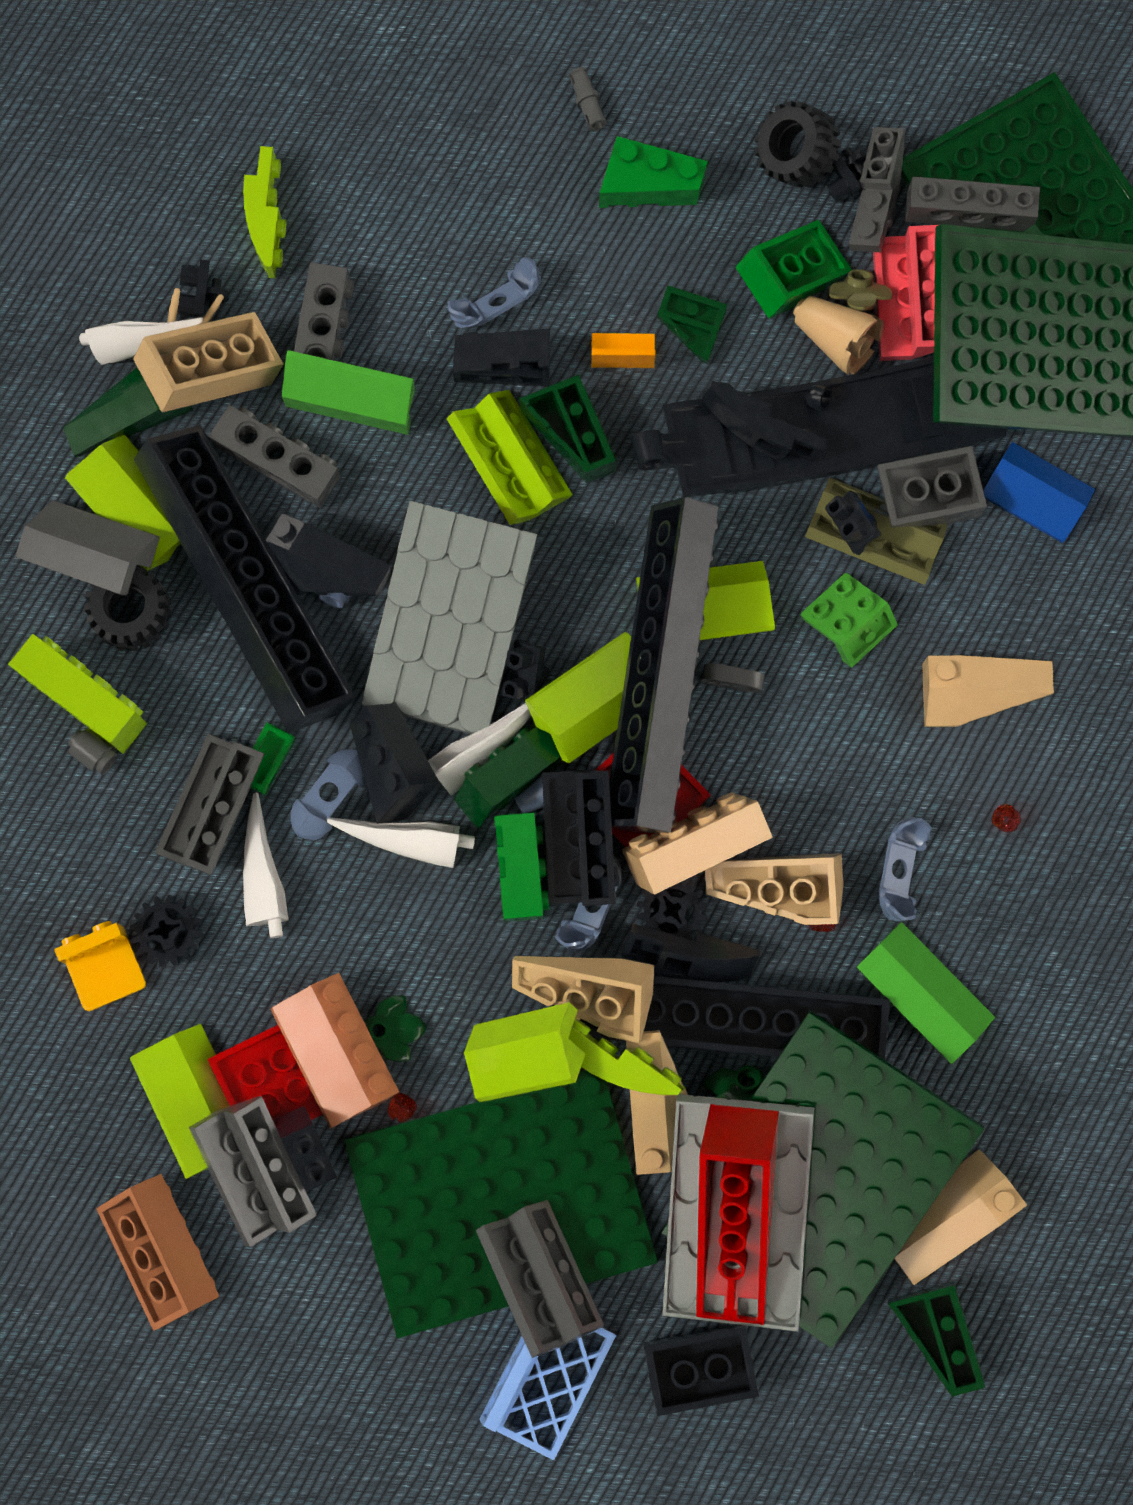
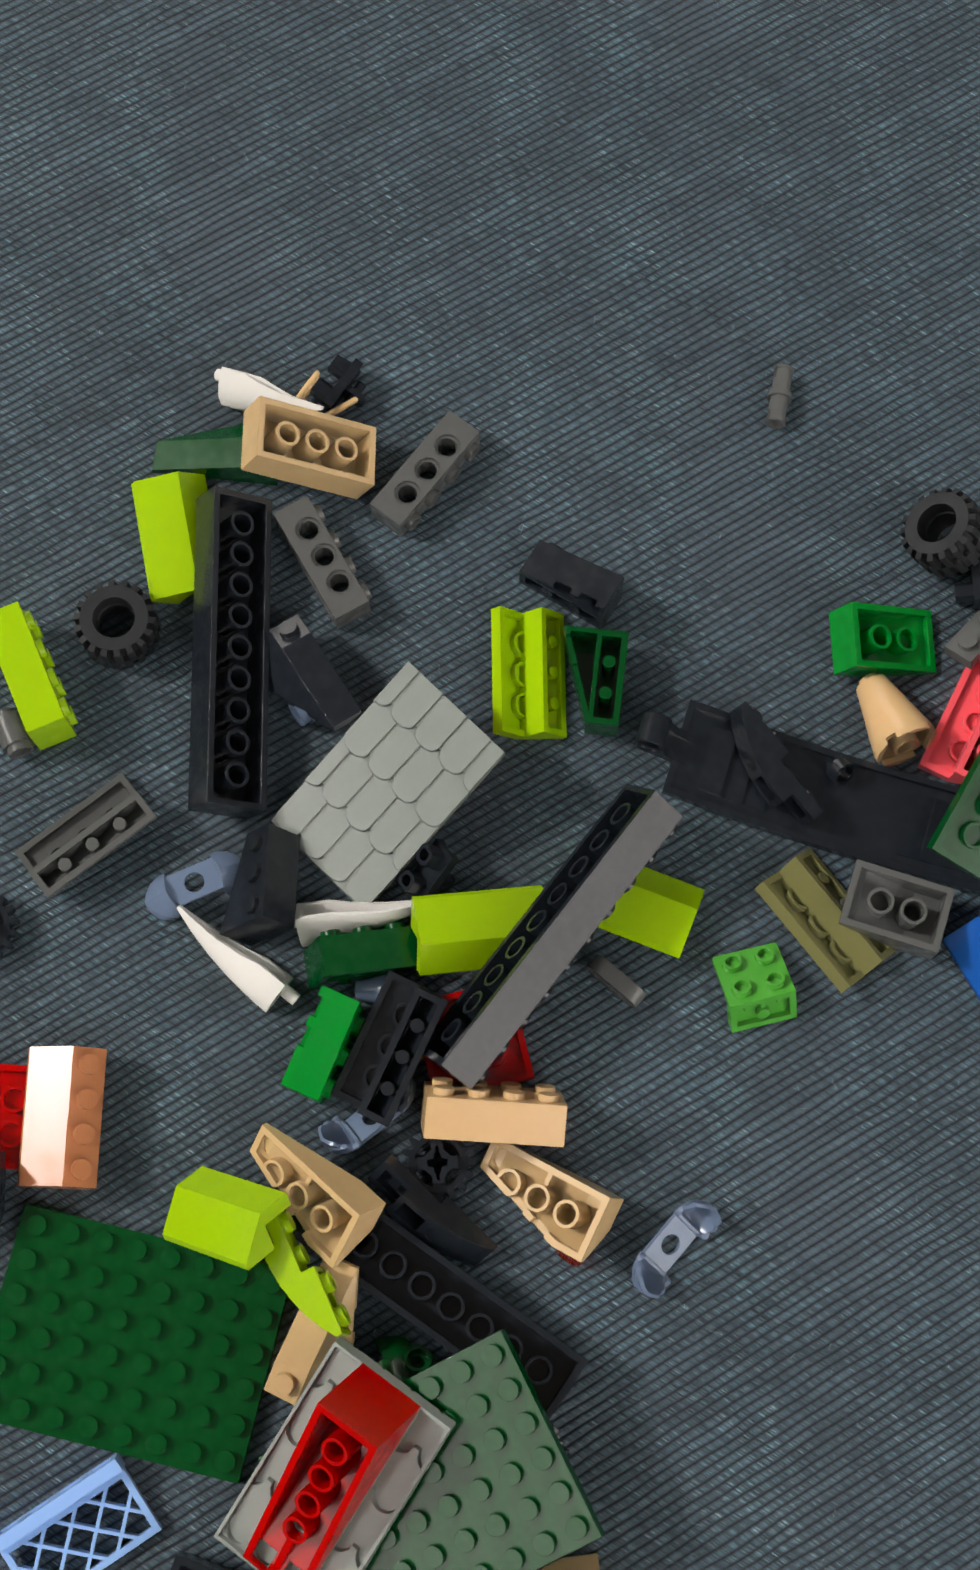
camera: 30 degrees right, 5 degrees down
(86, 546) = (112, 552): dark grey slope -> none
(261, 212) = (433, 346): lime slope -> none
(261, 884) = (90, 934): white piece -> none
(276, 746) = (171, 818): green tile -> none
(347, 392) = (416, 539): bright green slope -> none
(398, 1028) = (132, 1131): dark green plate -> none
(401, 1107) = (93, 1203): clear red hinge -> none
(521, 285) = (627, 528): sand blue piece -> none
(539, 1278) = (119, 1435): dark grey slope -> none
(623, 350) = (685, 633): light orange panel -> none
(650, 176) = (797, 491): green wedge -> none
(692, 320) = (763, 639): dark green wing -> none
(853, 521) = (806, 898): black hips -> none
(860, 290) = (931, 693): olive plate -> none
(926, 993) = (629, 1375): bright green slope -> none
(975, 687) = (837, 1115): tan wedge -> none
(1009, 812) = (793, 1247): clear red hinge -> none

